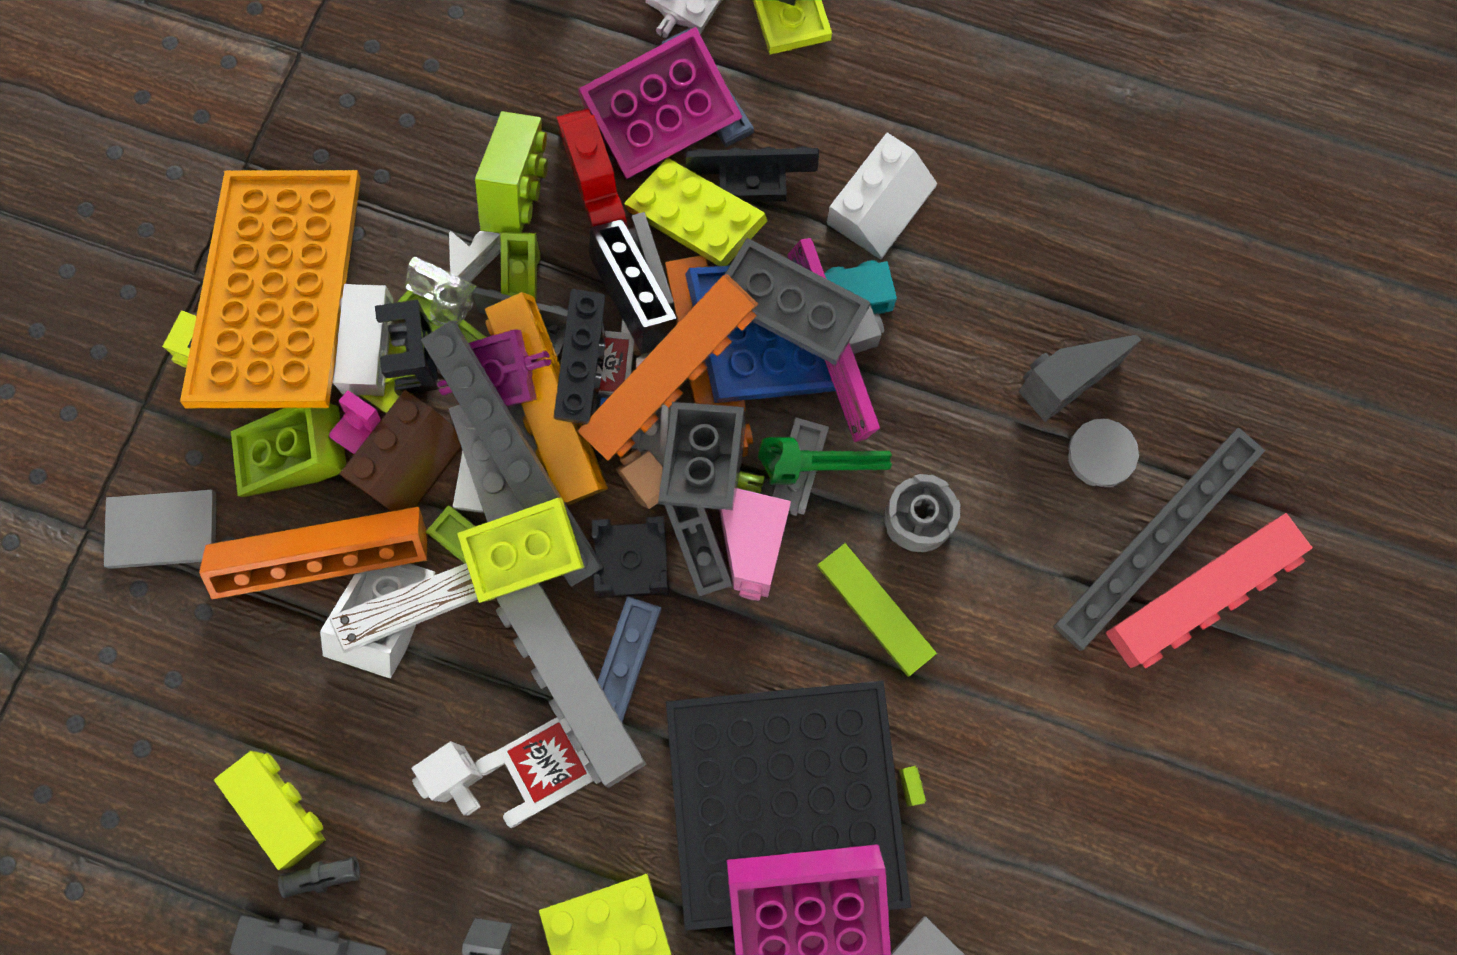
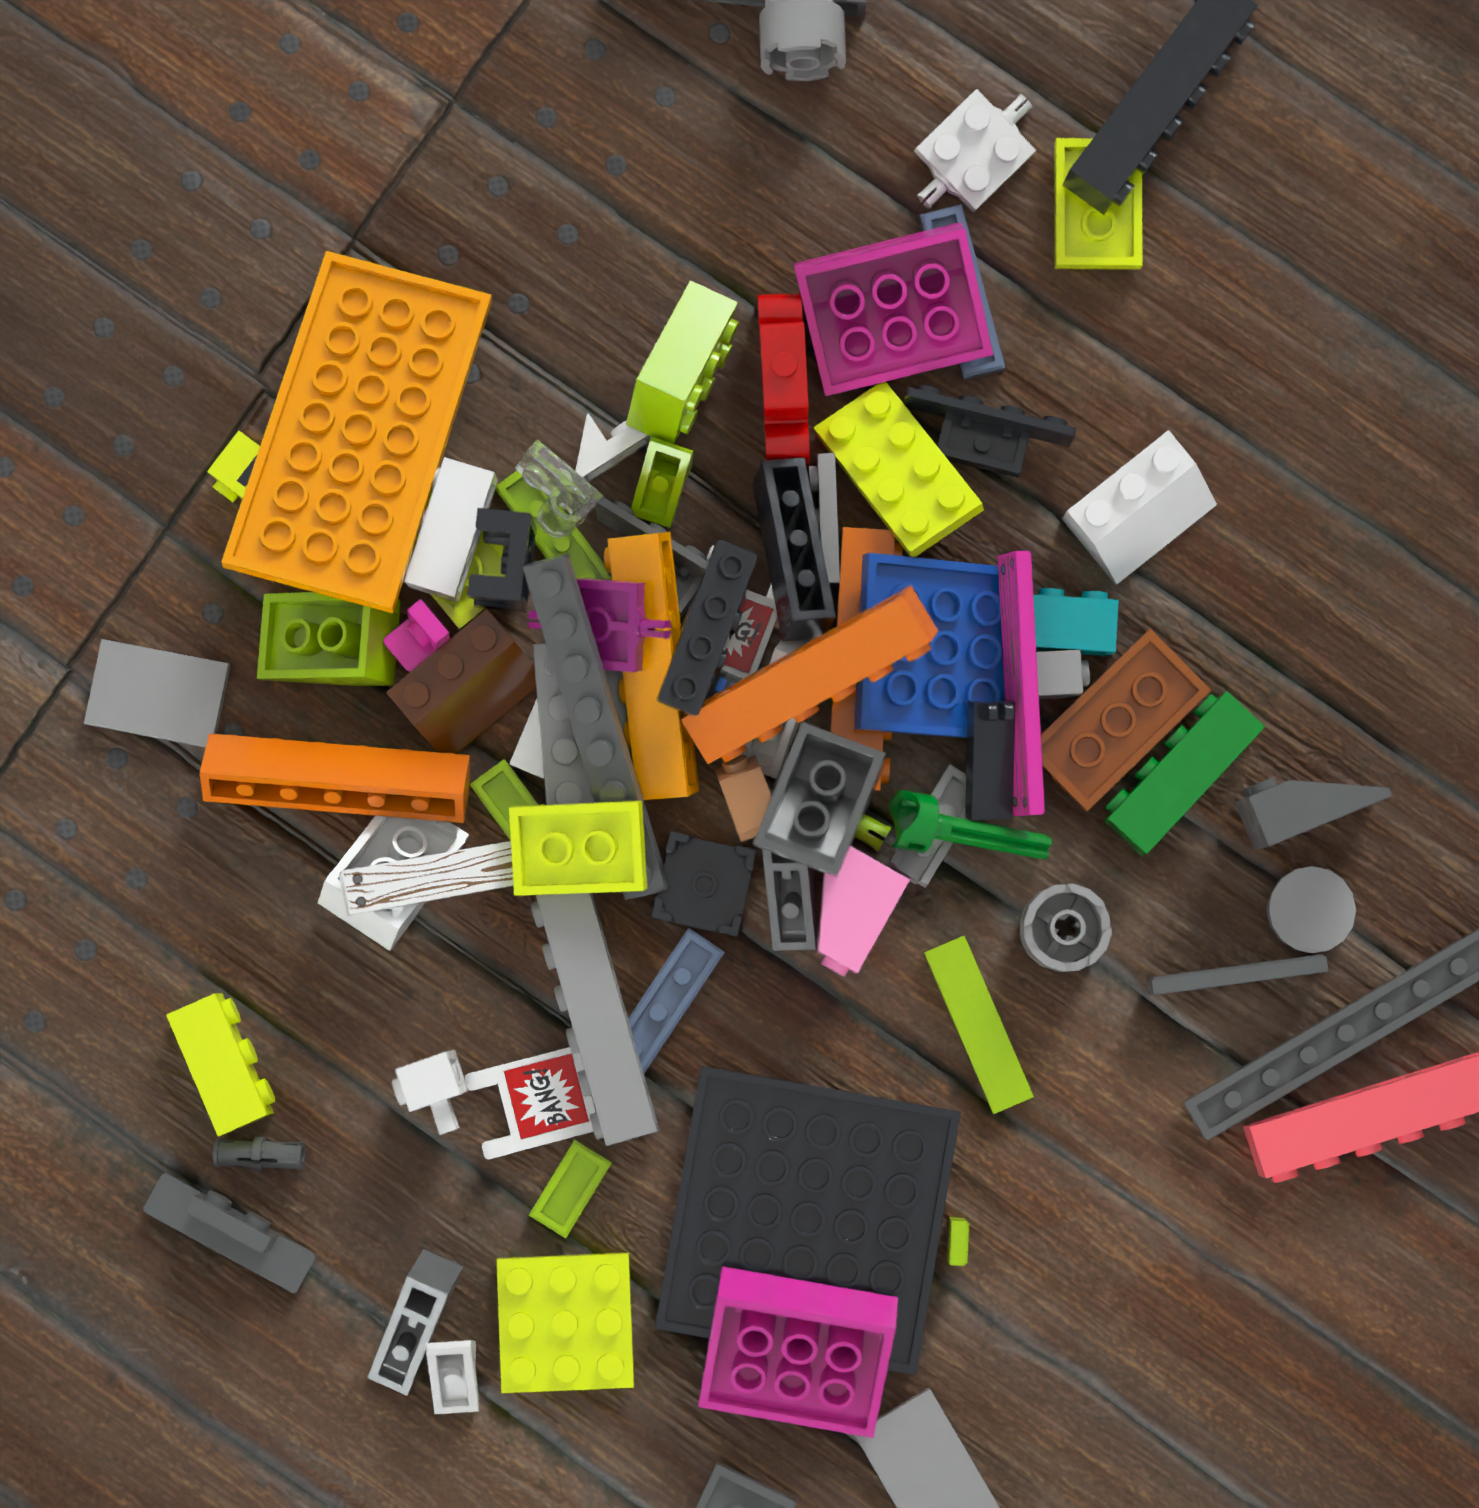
camera: 20 degrees right, 10 degrees up
(585, 833) = (570, 1188): none -> lime tile
(798, 301) = (986, 632): dark grey plate -> none
(825, 403) = (990, 760): none -> black hinge
(914, 351) = (1119, 719): none -> dark orange plate
(974, 377) = (1184, 773): none -> green brick
(1064, 515) = (1237, 974): none -> dark grey tile

